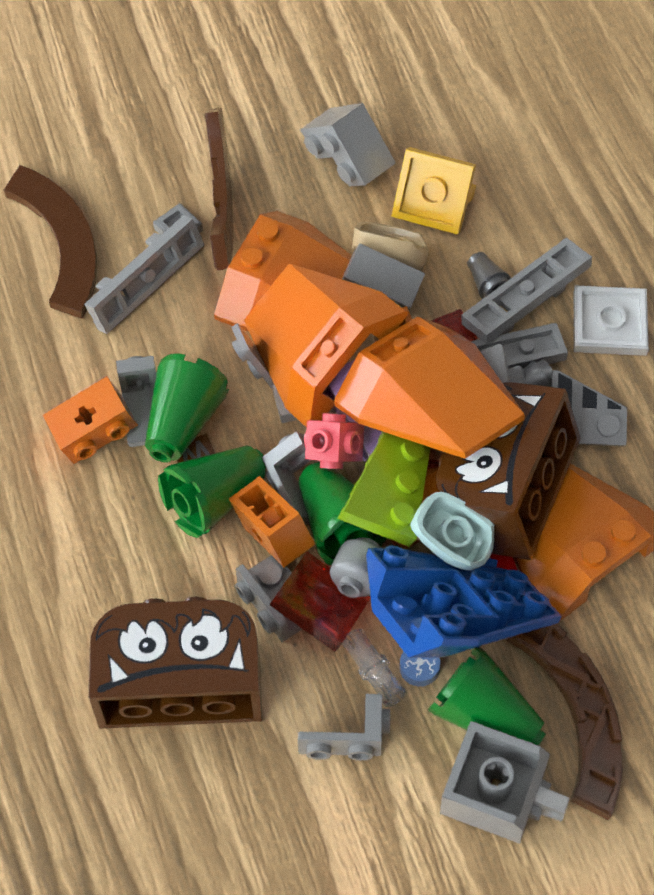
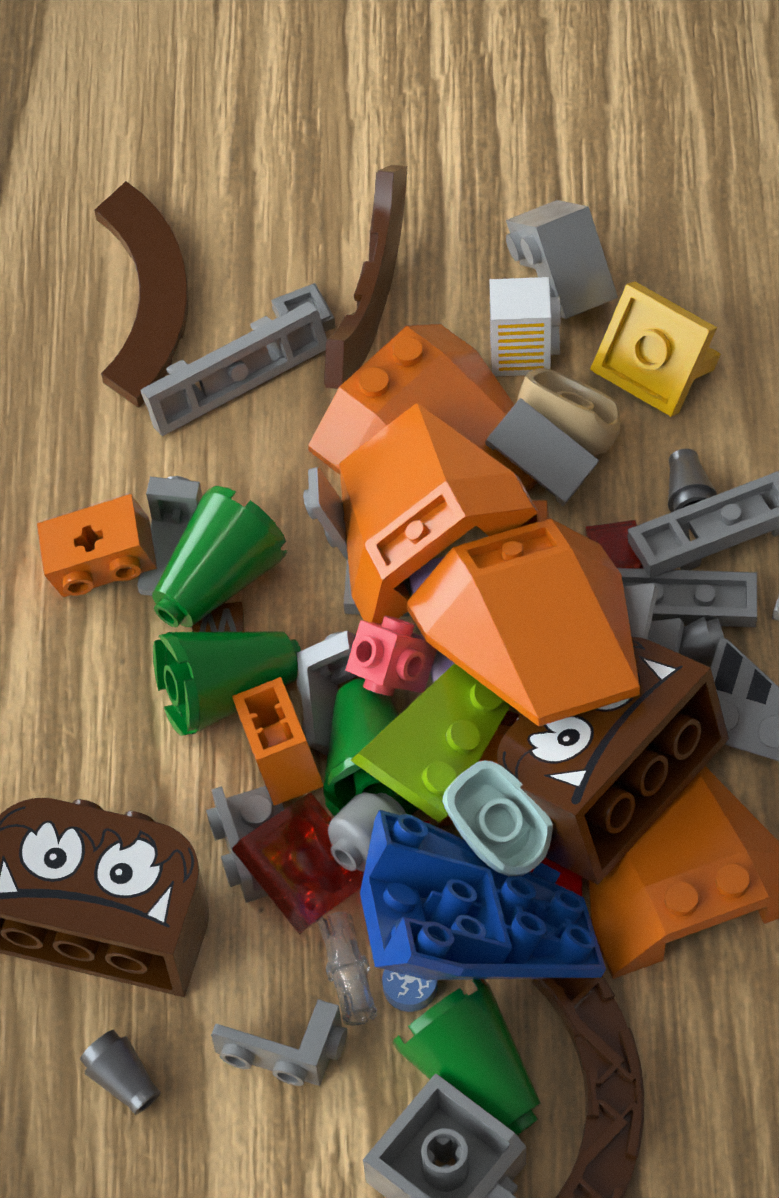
camera: 20 degrees right, 0 degrees up
(237, 786) = (118, 1070): none -> flat silver cone
(339, 196) = (523, 325): none -> white brick

